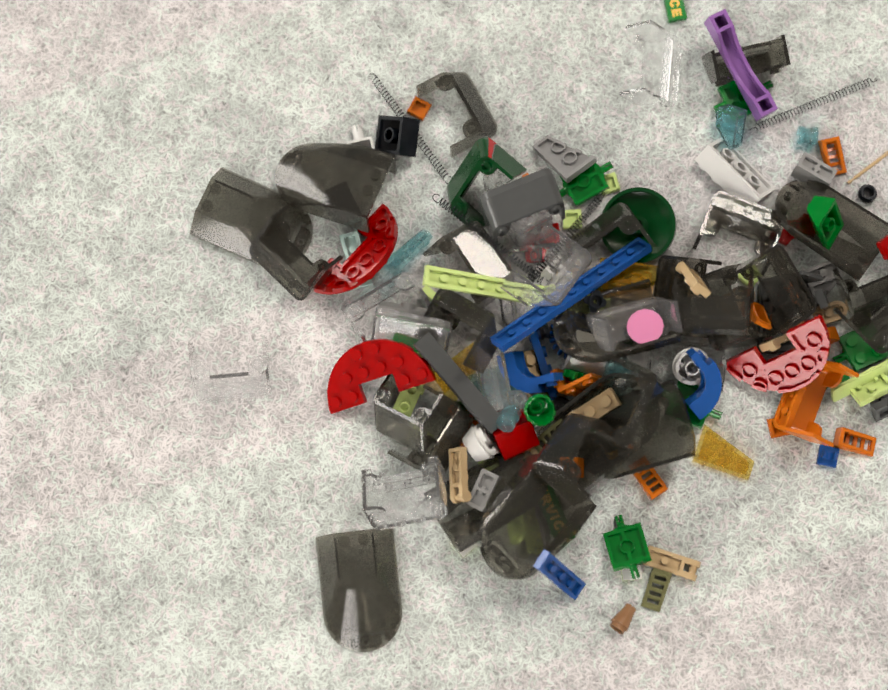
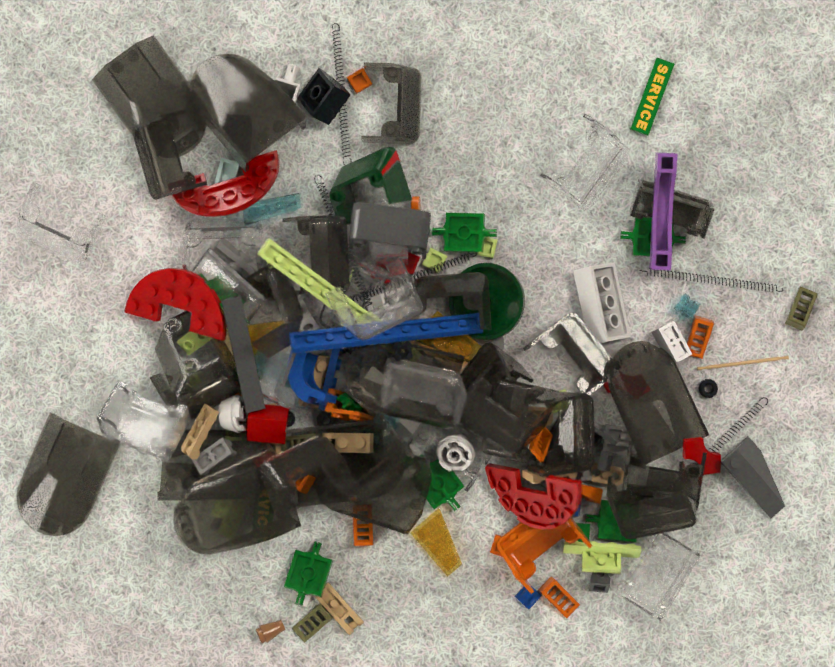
camera: 30 degrees right, 10 degrees up
(508, 418) = (269, 408): clear light blue wheel -> none
(539, 410) = (298, 418): green hair -> none
(559, 574) = (233, 565): blue plate -> none
(562, 159) = (457, 203): light grey wing -> none
(645, 326) = (432, 398): bright pink sticker -> none
(692, 278) = (497, 383): tan plate -> none
(710, 387) = (452, 486): blue arch -> none
(731, 124) = (624, 258): clear light blue slope -> none
(825, 219) = (651, 393): green slope -> none

